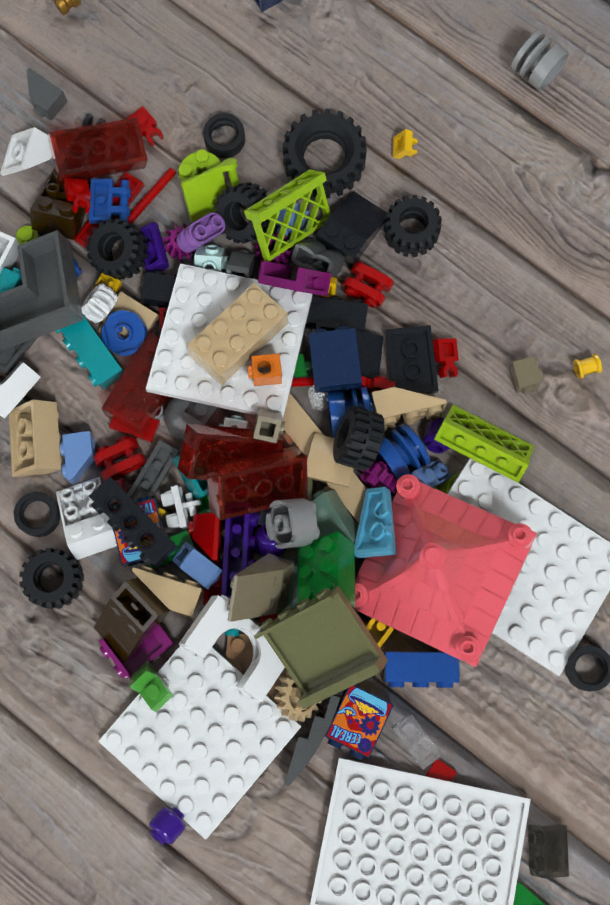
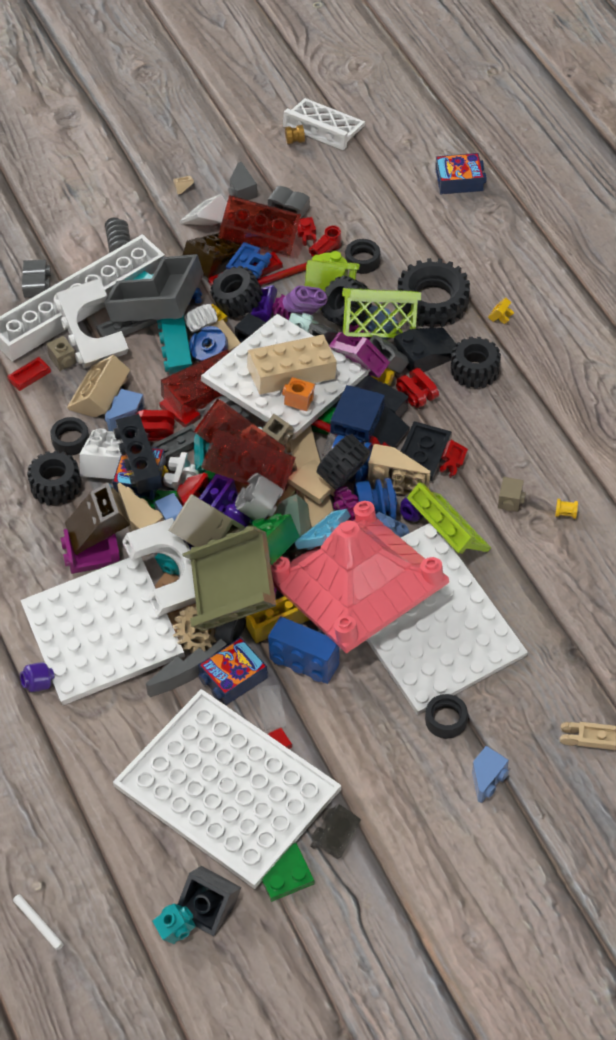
camera: 25 degrees right, 25 degrees down
(79, 192) = (228, 245): red plate -> none
(108, 98) = (288, 200): none -> dark grey brick
(150, 686) = (82, 570): bright green slope -> none
(177, 137) = (329, 241): none -> red piece

